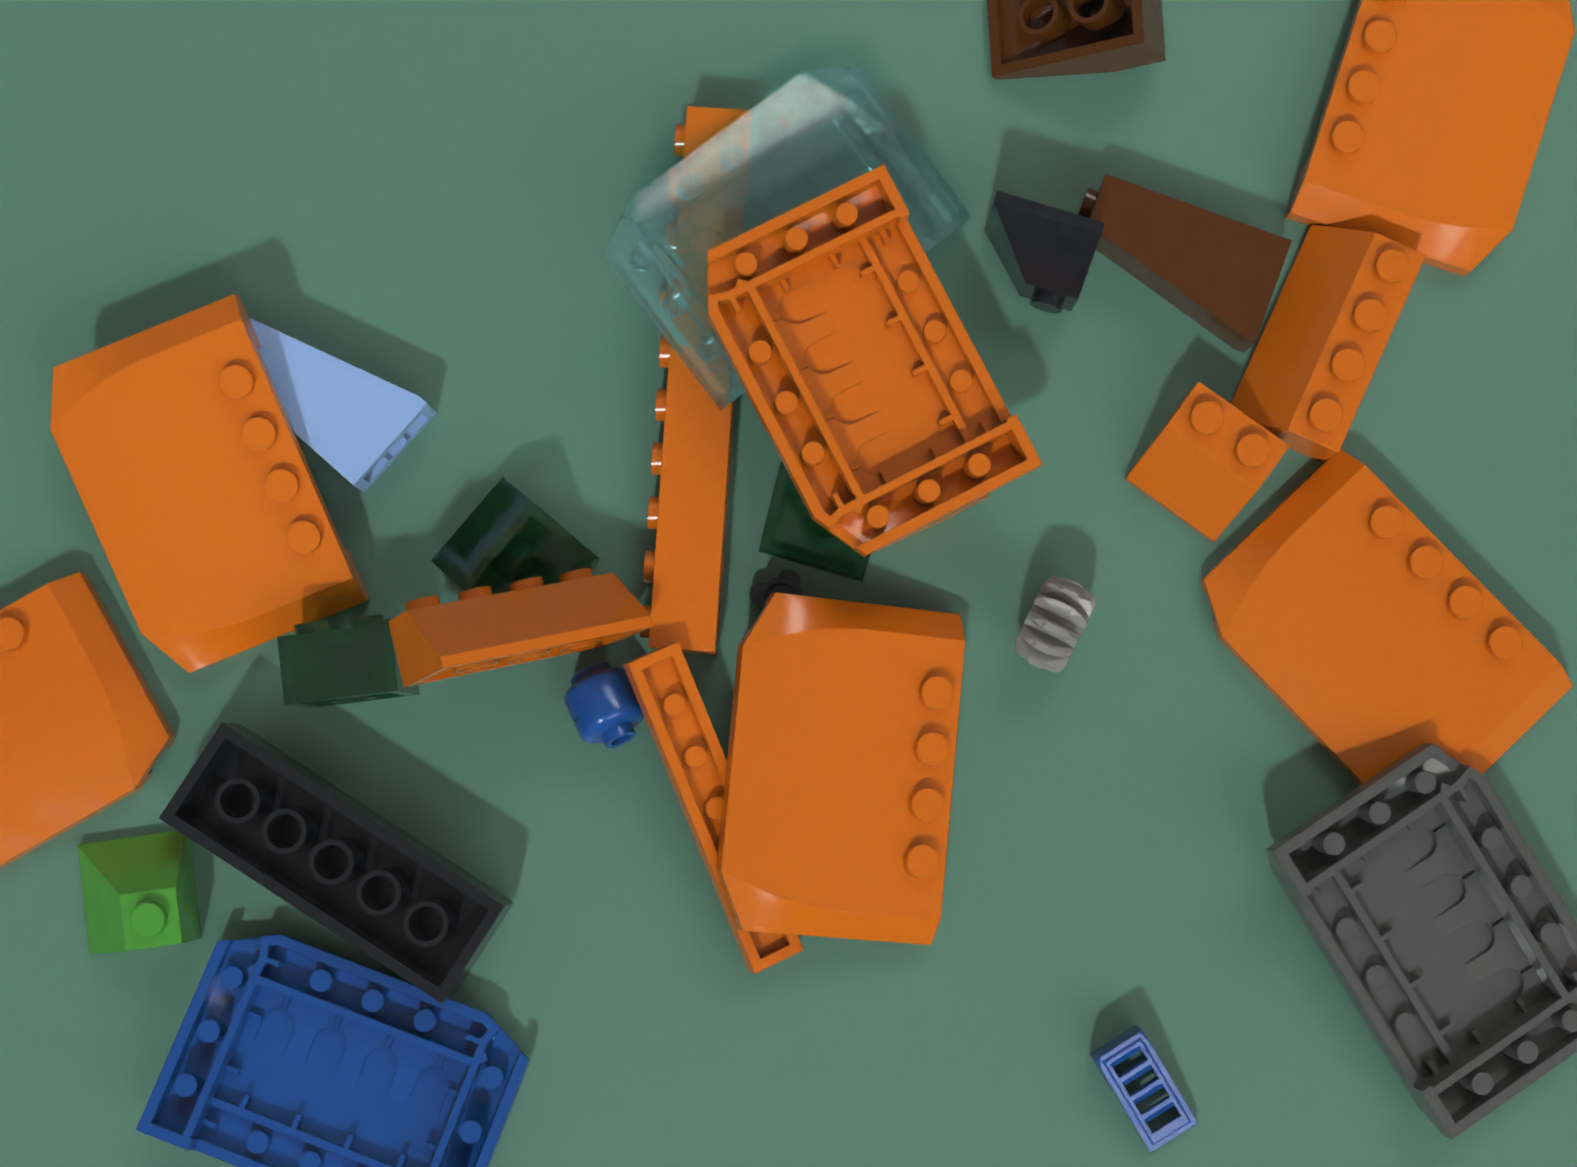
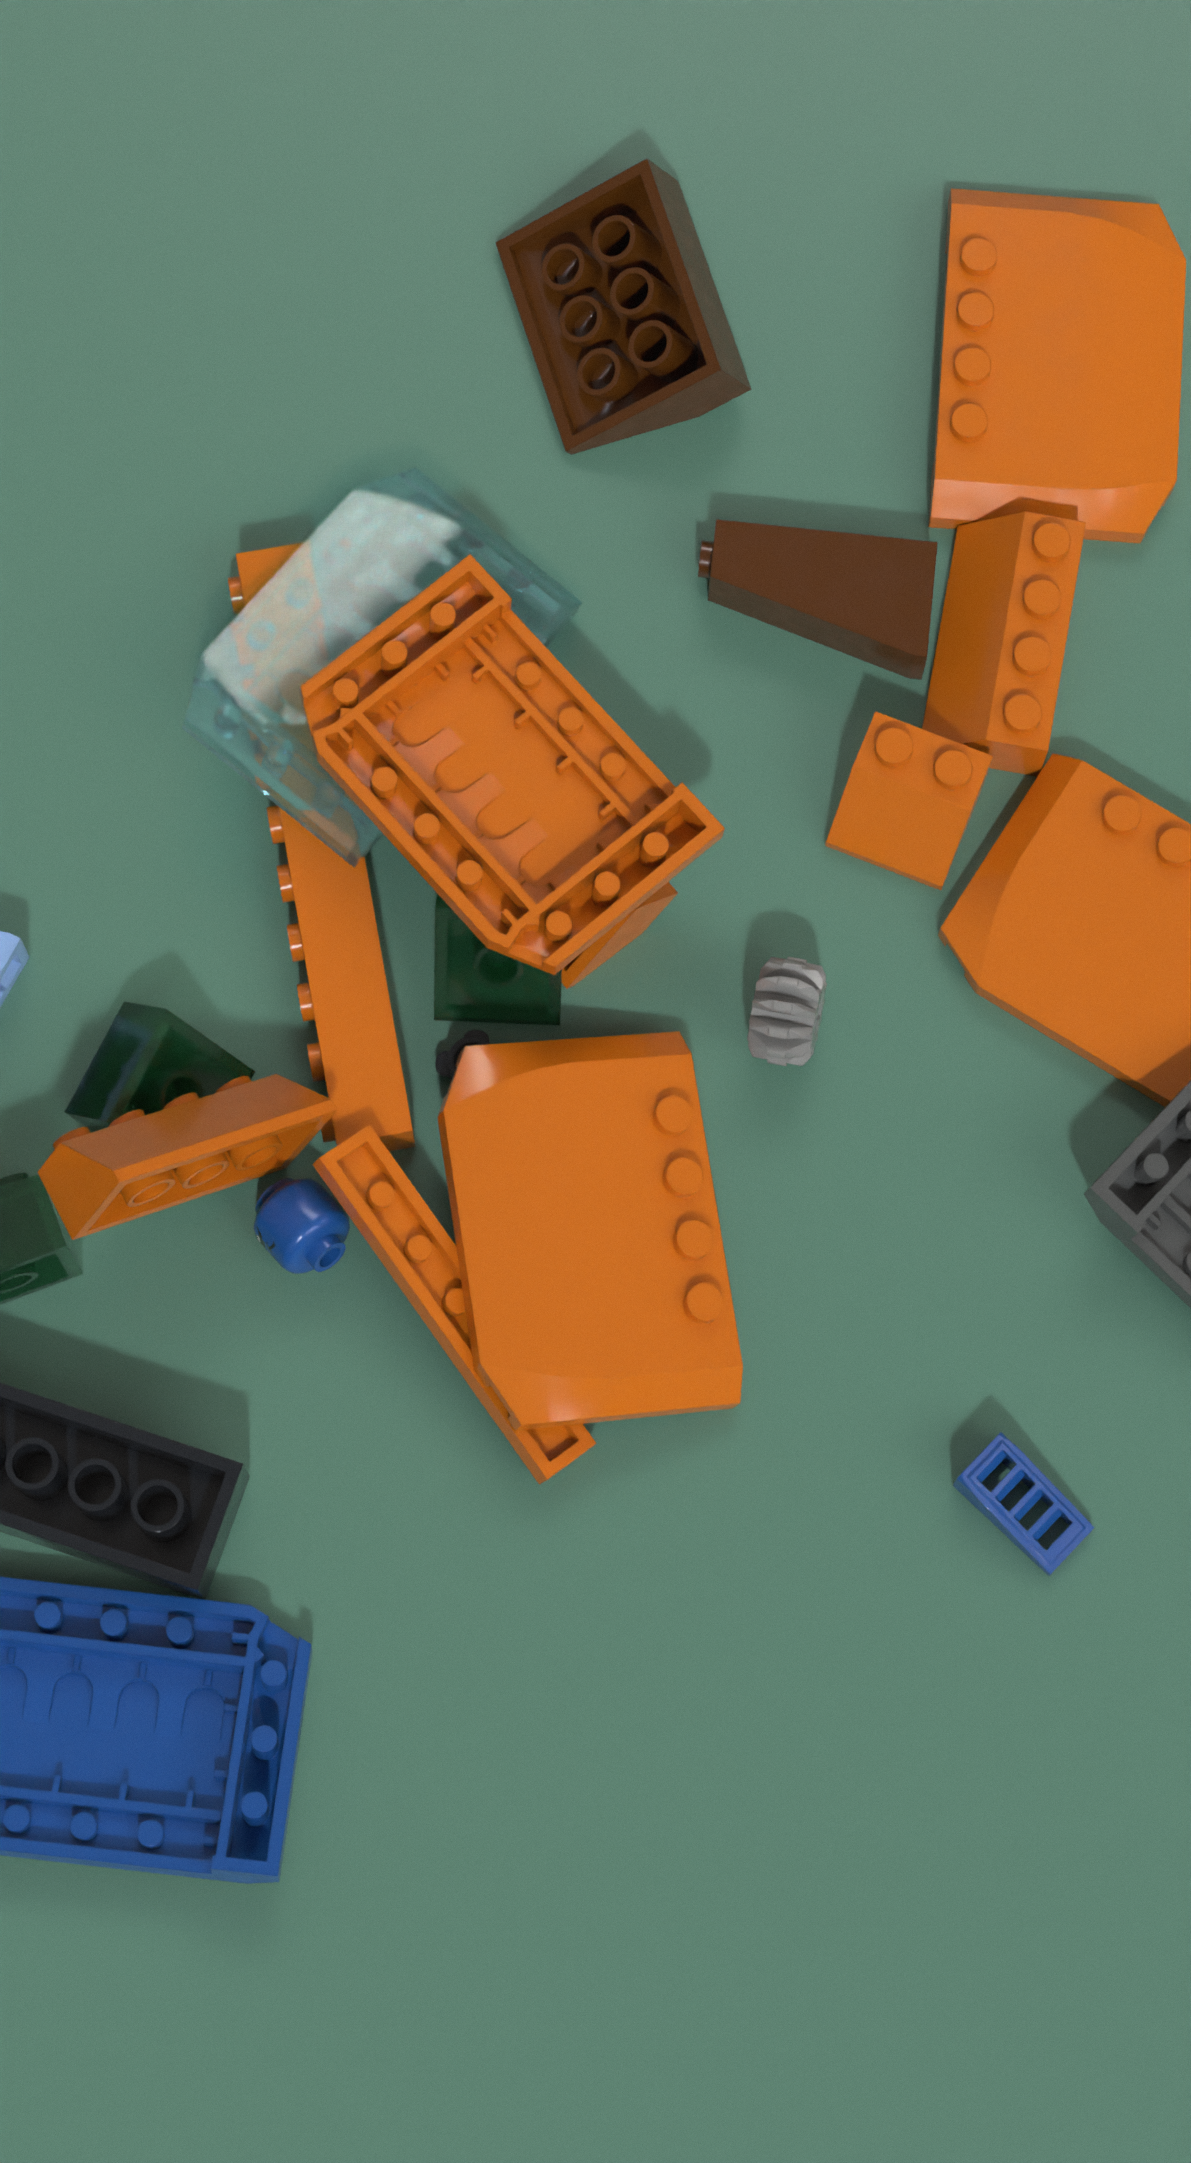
camera: 20 degrees left, 10 degrees down
(1043, 249) = (667, 614): black slope -> none

